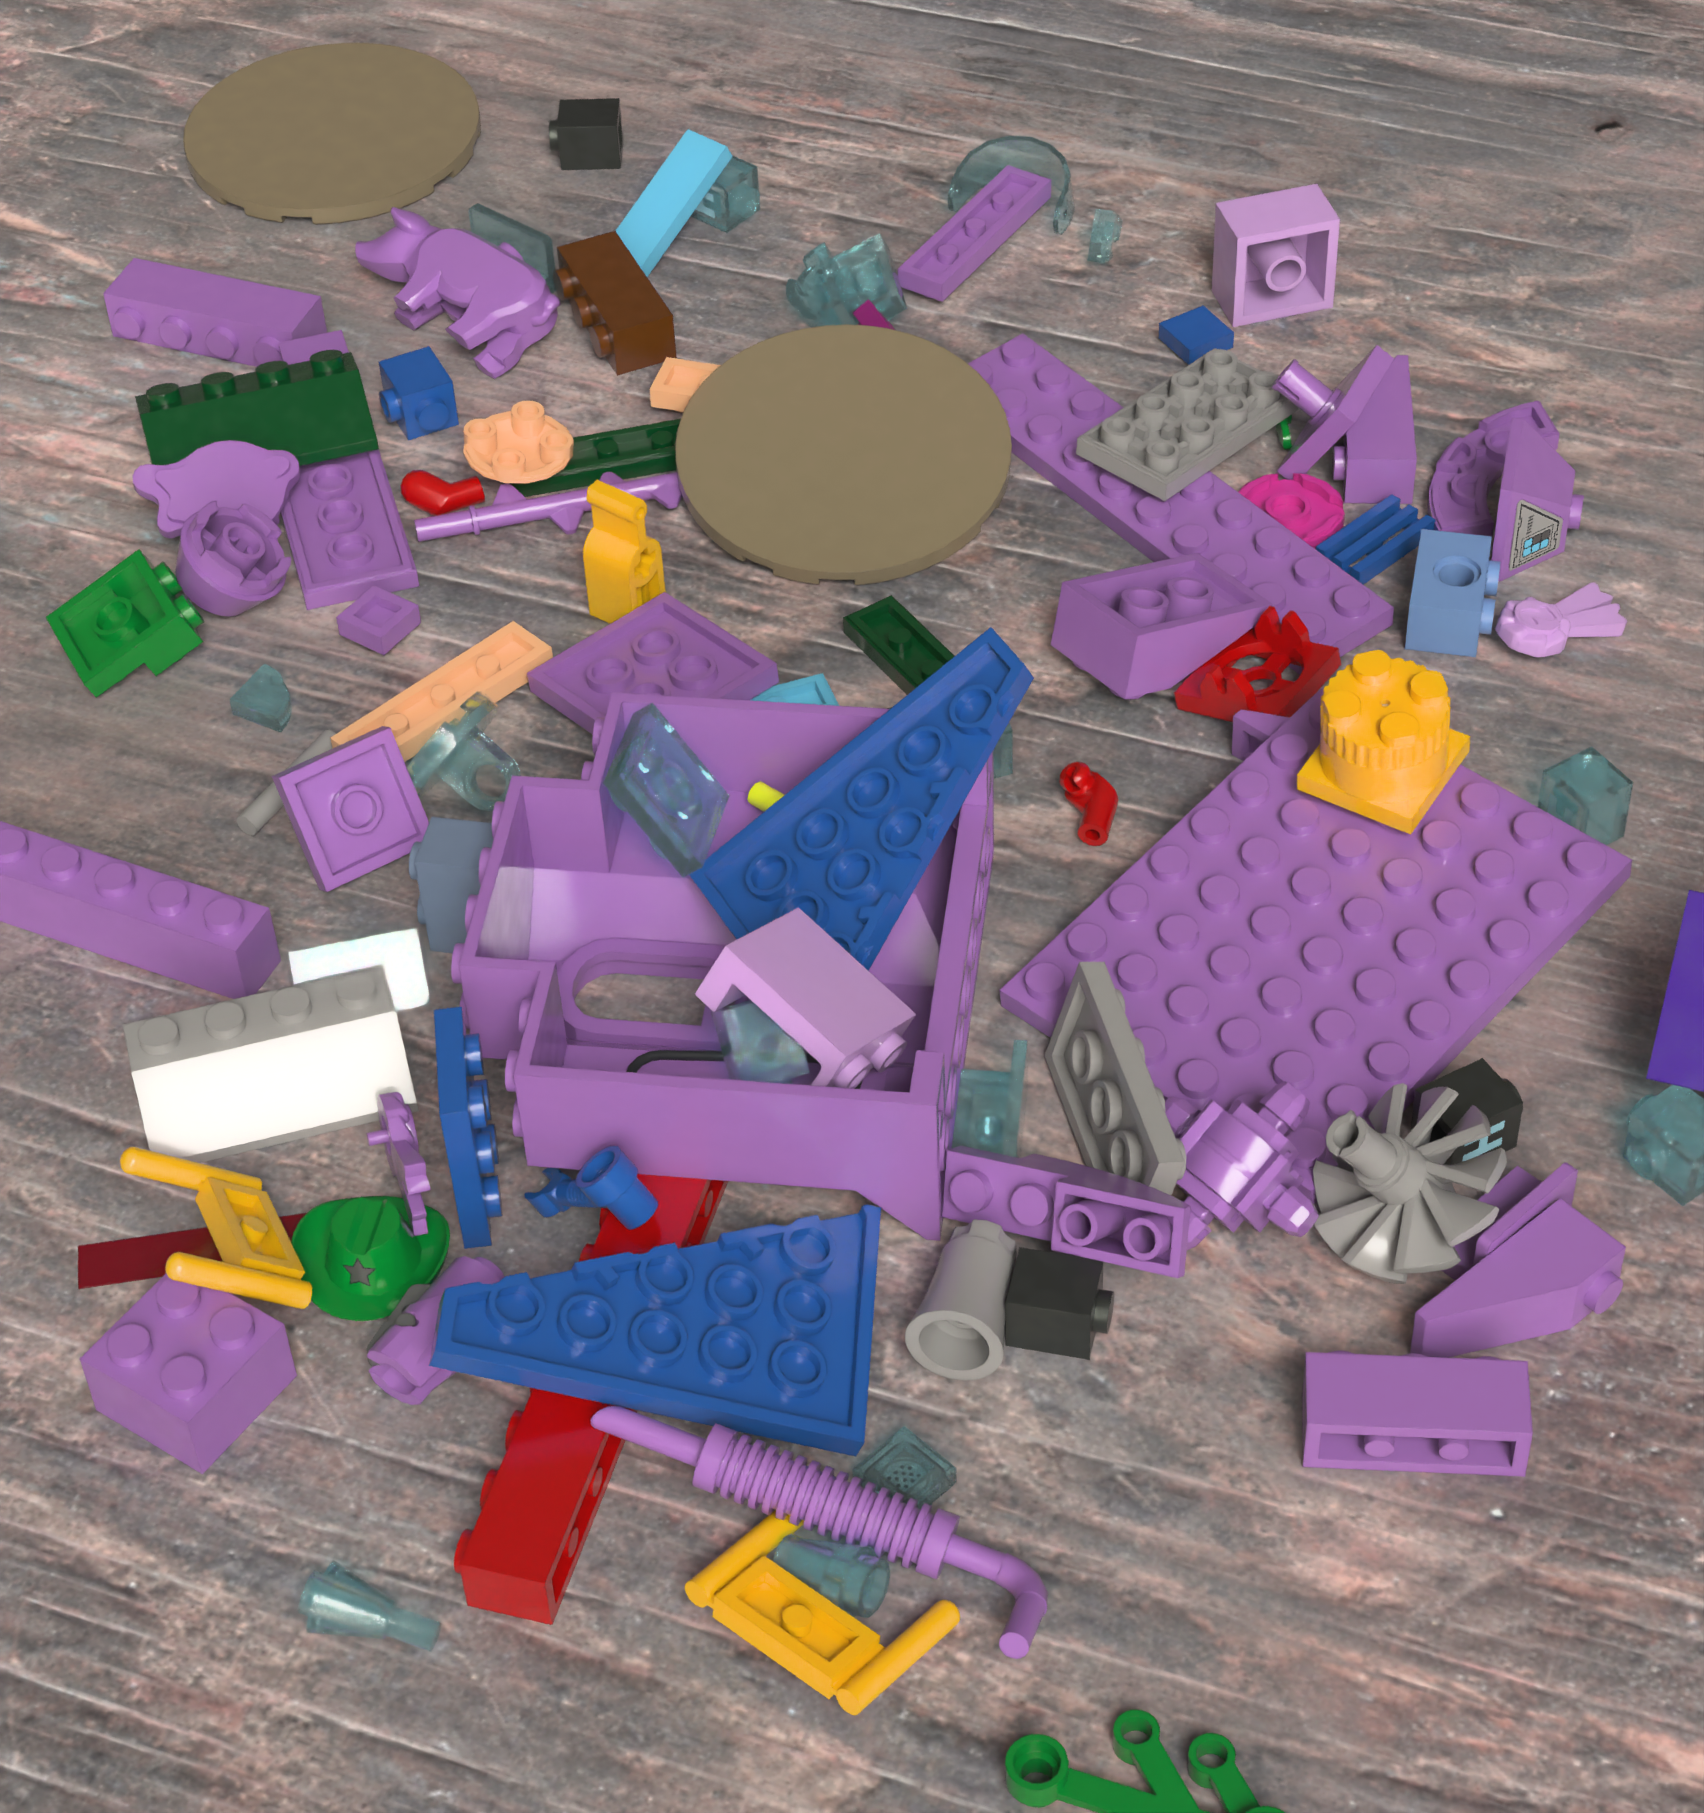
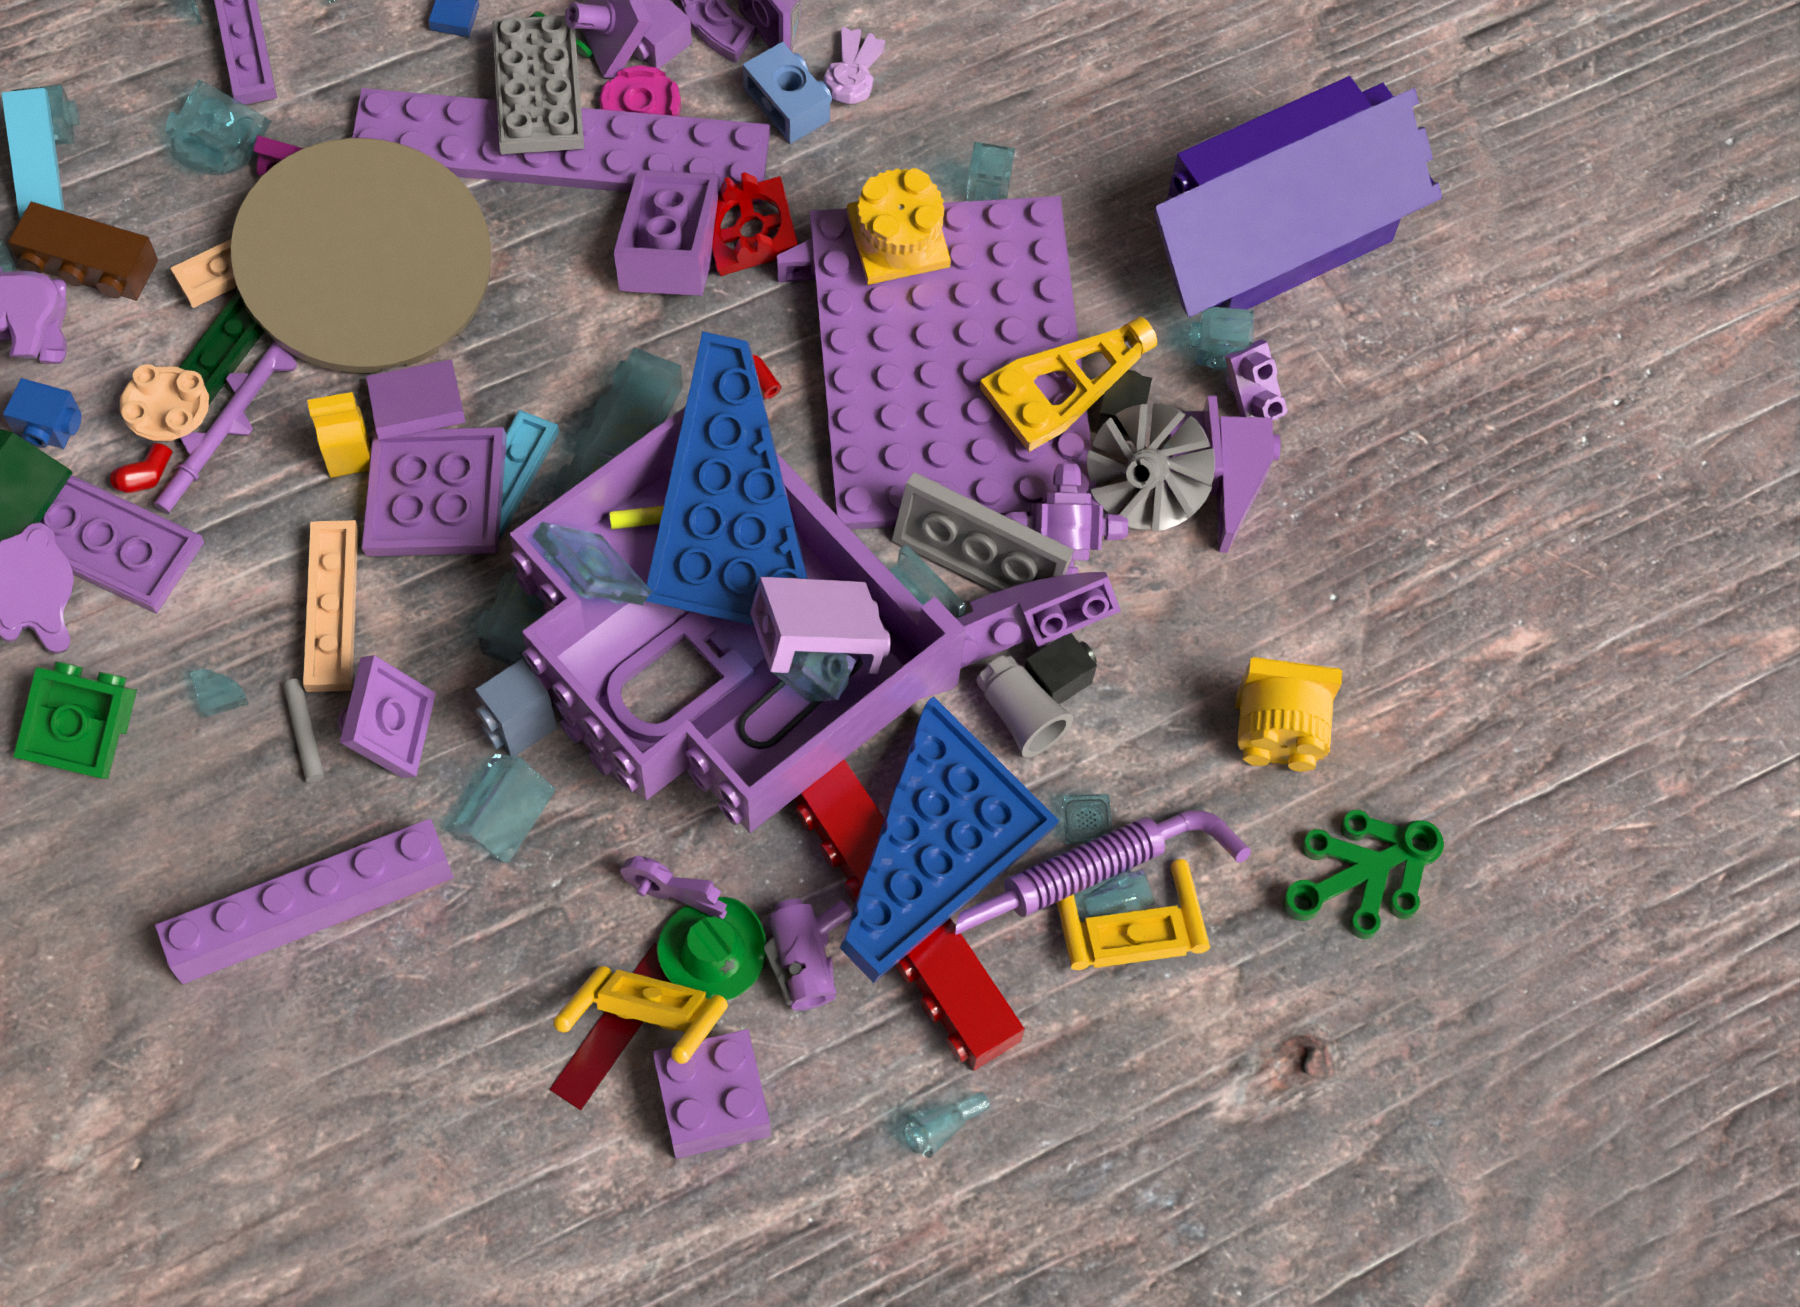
camera: 55 degrees left, 20 degrees up
(230, 559) = (94, 624): medium lavender cone -> none
(268, 1066) = (534, 904): slope -> none
(378, 620) = (223, 586): medium lavender plate -> none
(459, 751) = (395, 628): clear light blue tile -> none
(467, 1137) = (709, 844): blue plate -> none
(603, 1182) = (818, 807): blue brick -> none
(734, 594) = (415, 399): none -> medium lavender tile
(896, 642) = (554, 358): dark green tile -> none
(1253, 1544) = (1286, 712): none -> yellow piece
(1332, 1006) = (1026, 407): none -> yellow plate
(1367, 536) = (705, 58): blue tile -> none
(1416, 1413) = (1264, 581): medium lavender brick -> none
(1655, 1204) = (1255, 382): none -> medium lavender hips

